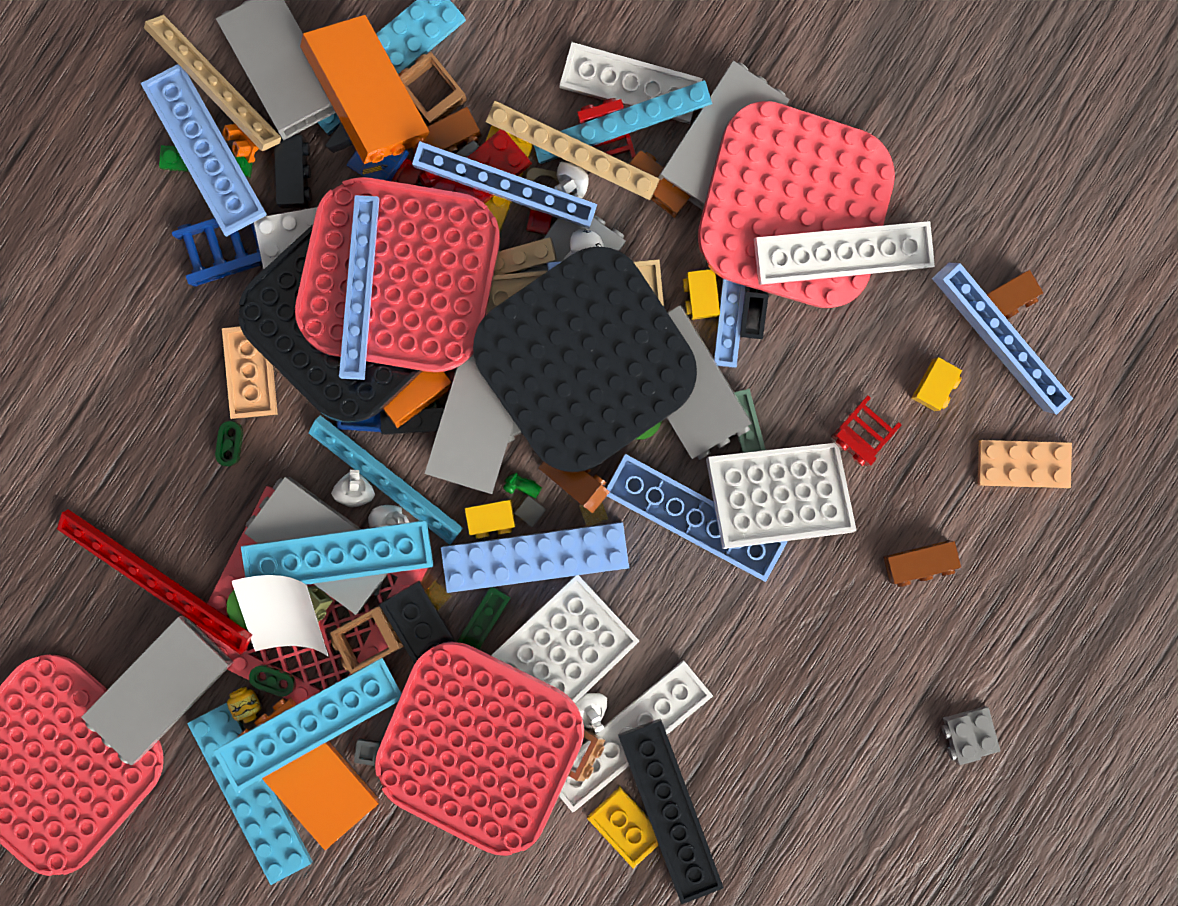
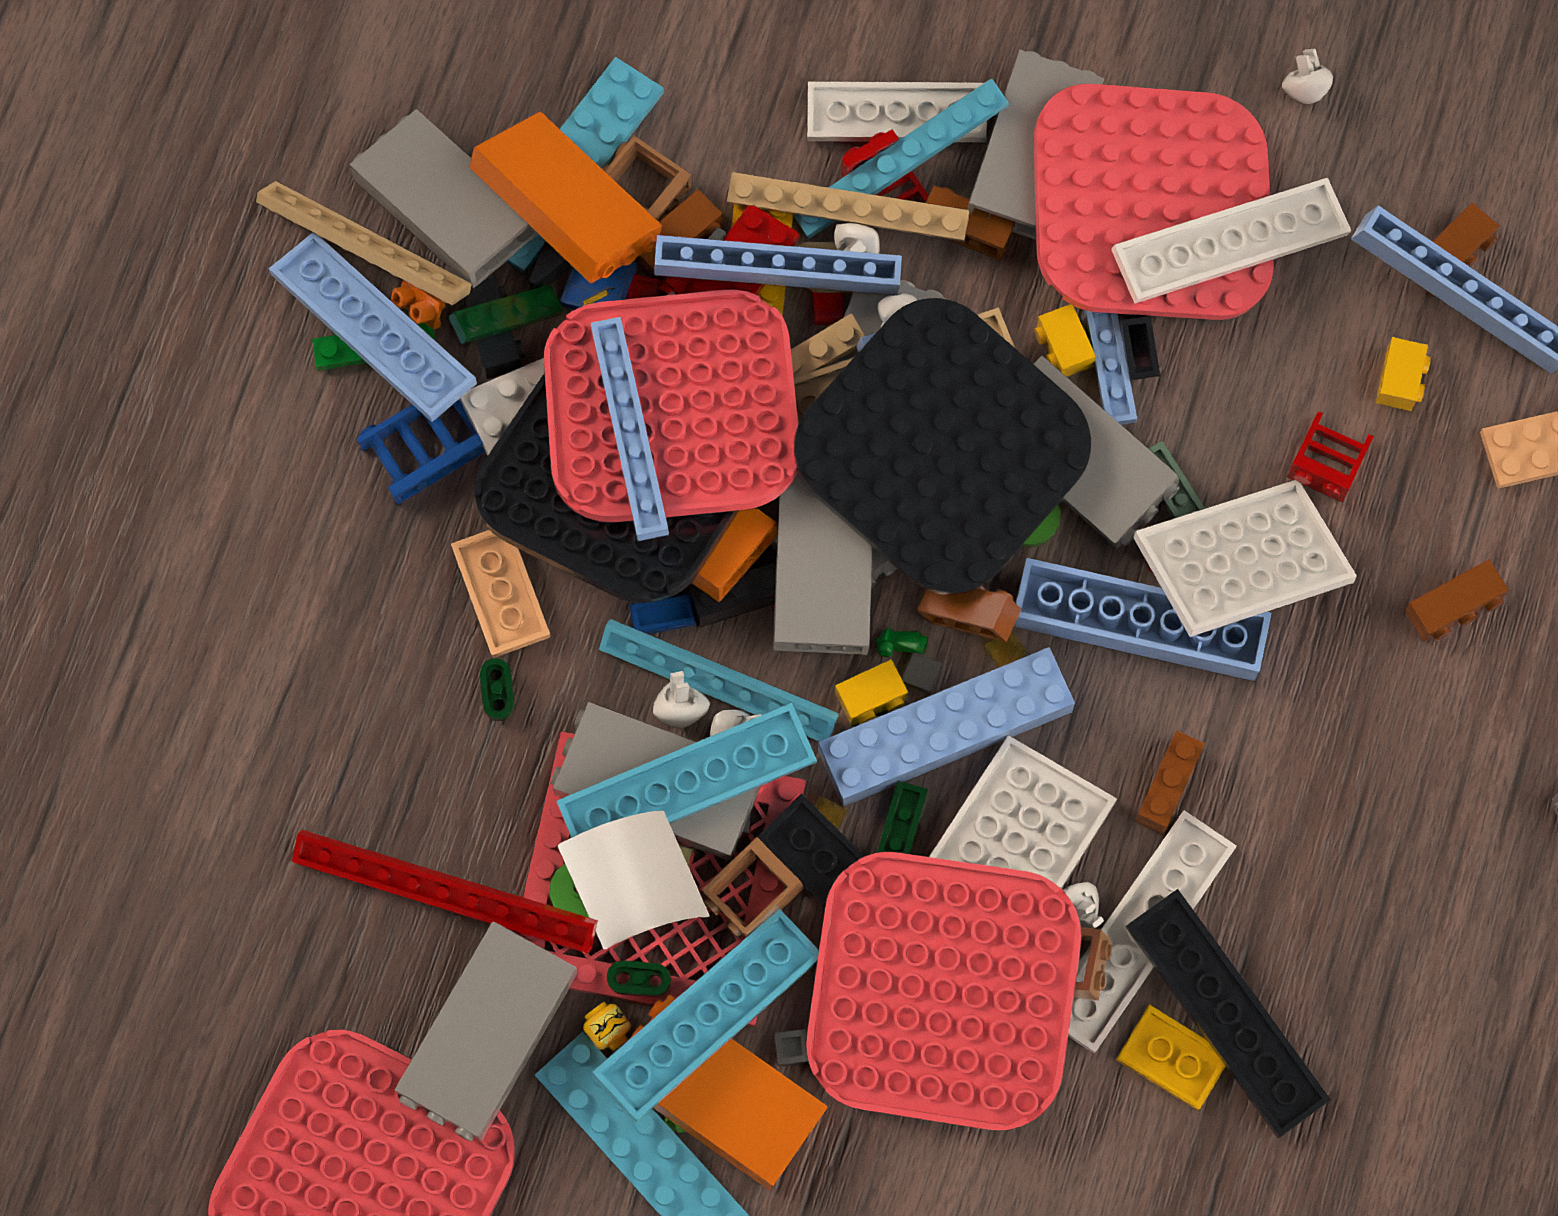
camera: 15 degrees left, 15 degrees down
(300, 167) = (505, 314): none -> dark green plate
(679, 639) = (1169, 782): none -> dark orange brick
(940, 141) = (1310, 81): none -> white piece

